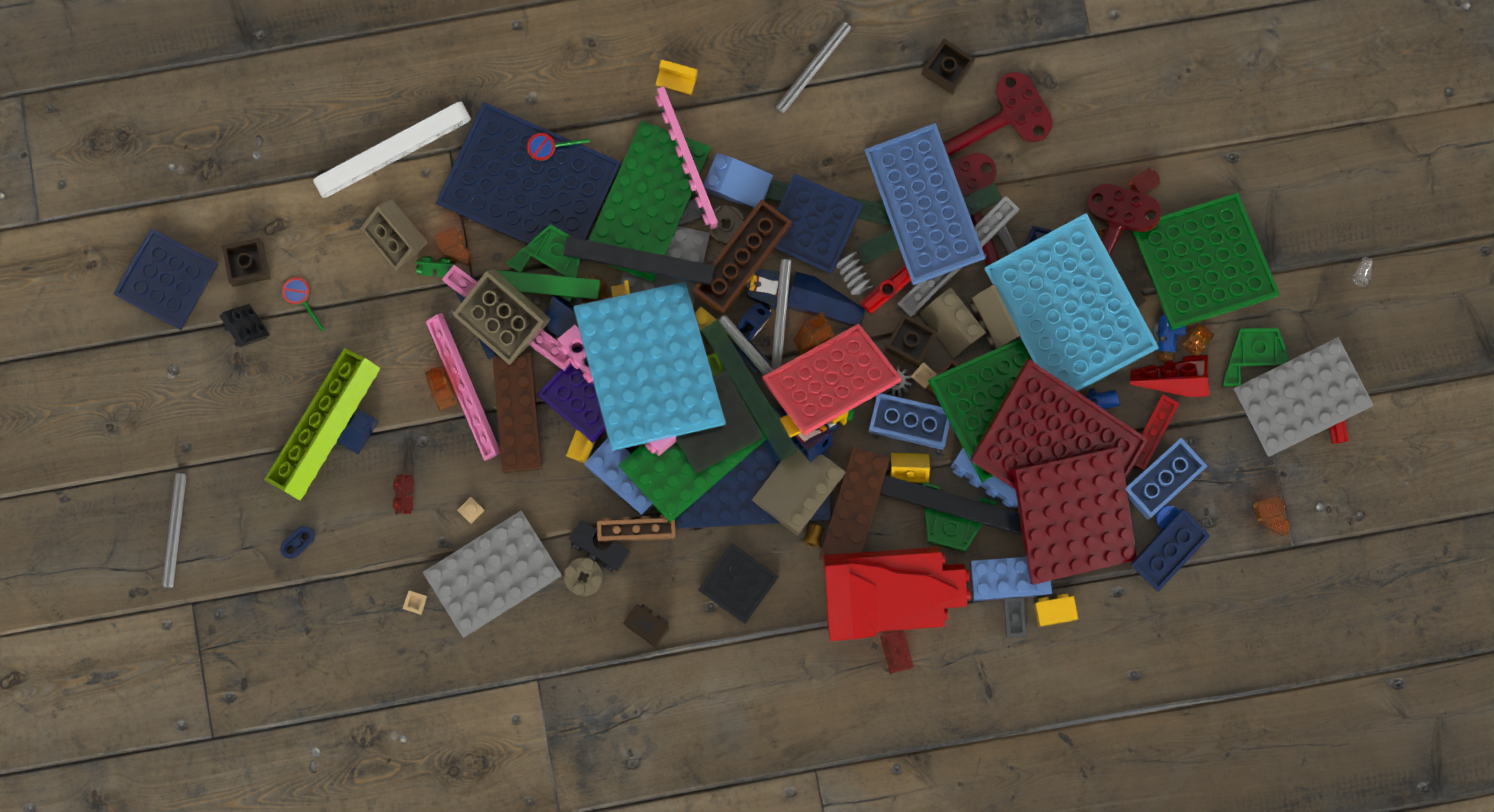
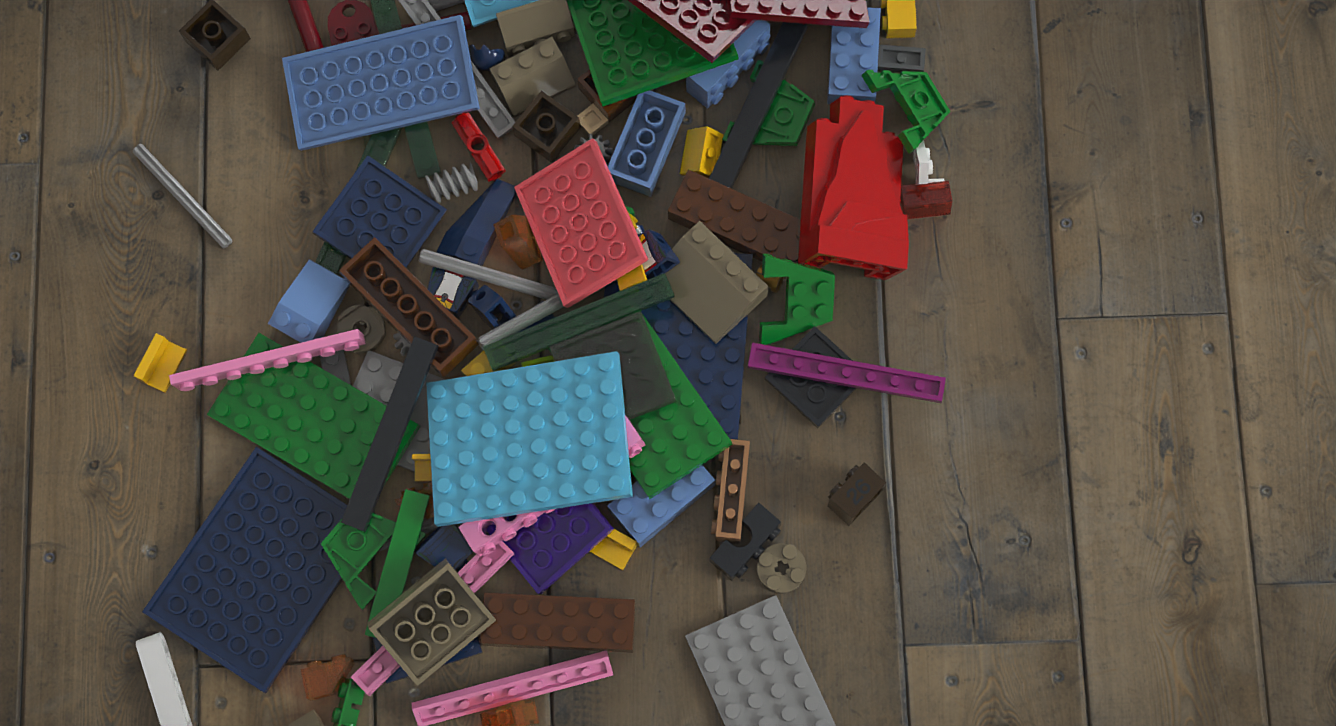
camera: 75 degrees left, 5 degrees down
(471, 510) = (675, 701): tan plate -> none
(542, 146) = (216, 542): piece -> none
(742, 606) = (846, 373): none -> magenta plate
(797, 567) = (807, 298): none -> green wing
(921, 644) = (923, 165): none -> white plate
(961, 282) = (486, 58): none -> dark blue hair
(980, 634) = (916, 97): none -> green wing

